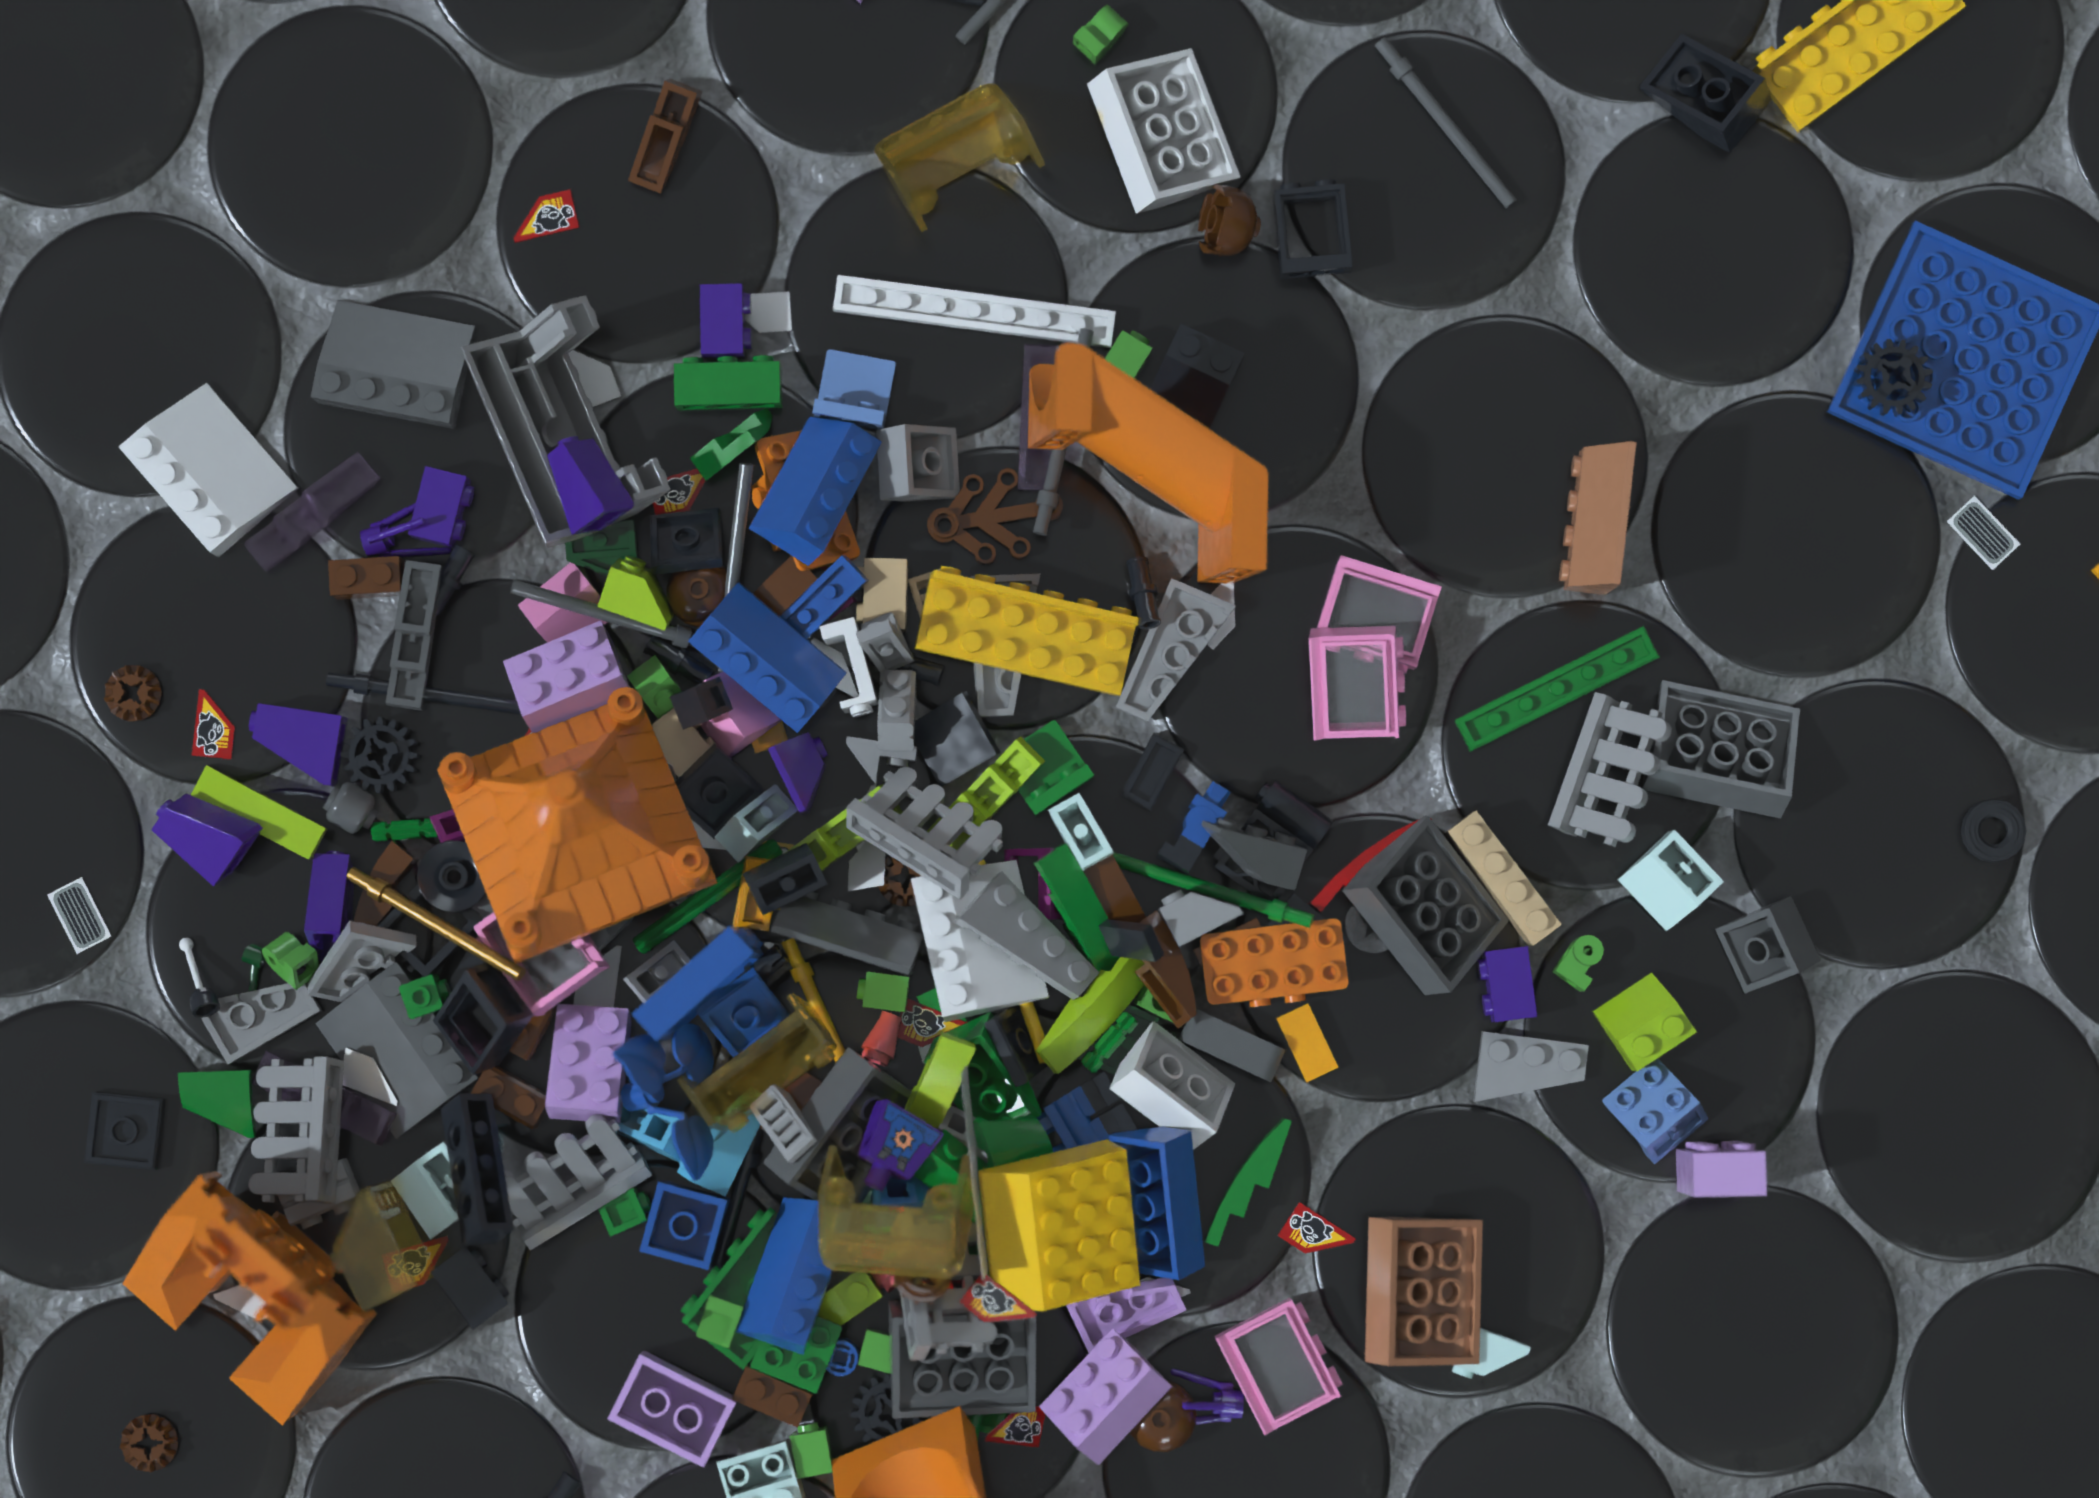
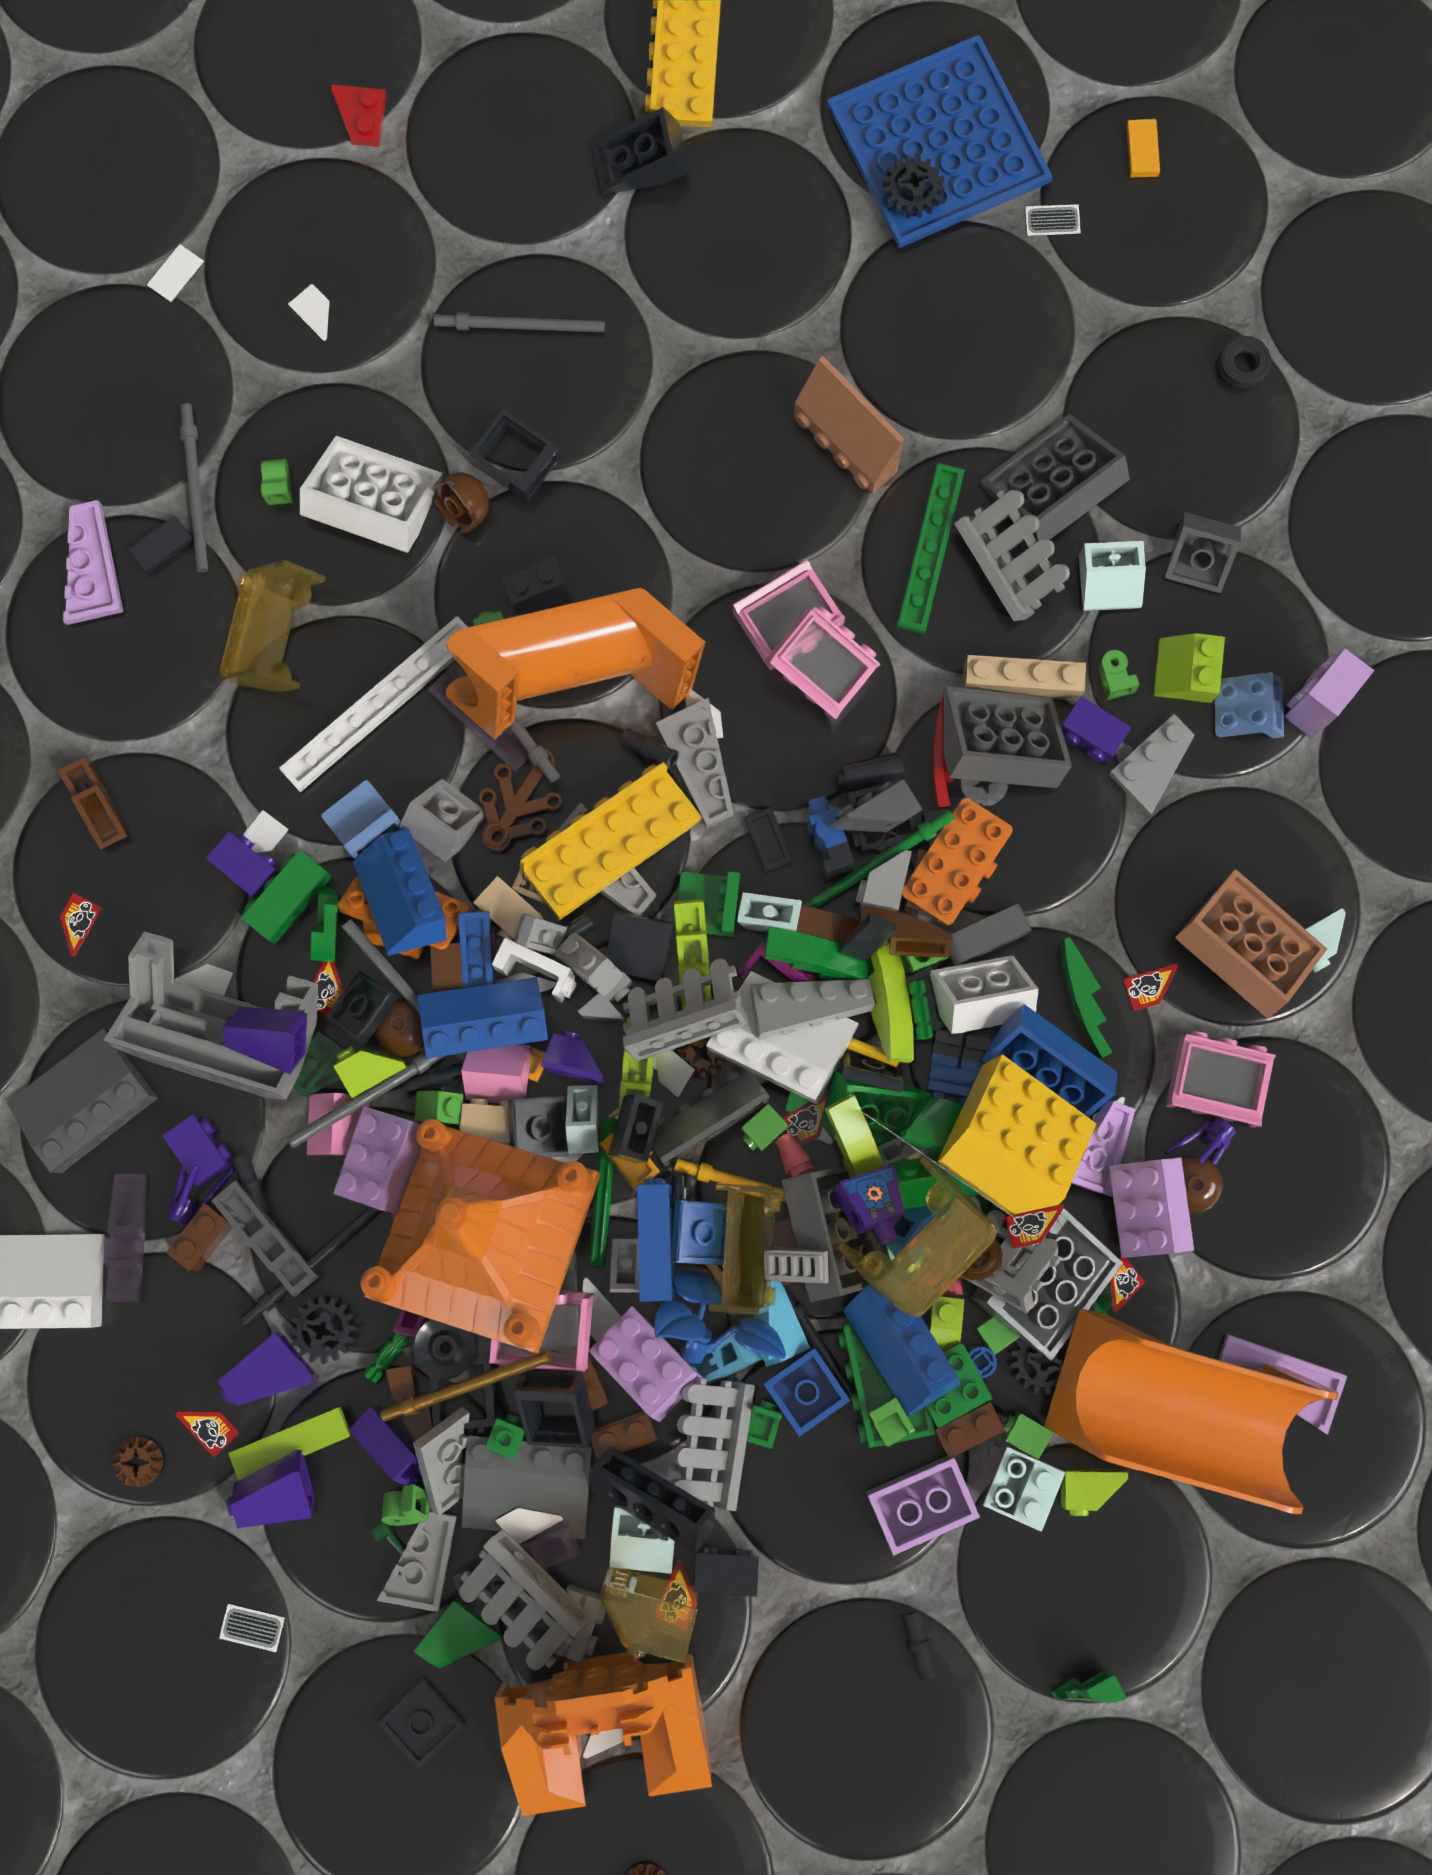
camera: 50 degrees left, 5 degrees down
(203, 1000) = (380, 1592): black hinge -> none
(350, 807) = (340, 1379): dark grey head -> none
(701, 703) = (474, 1085): black brick -> none
(1307, 1042) = (1024, 887): light orange tile -> none

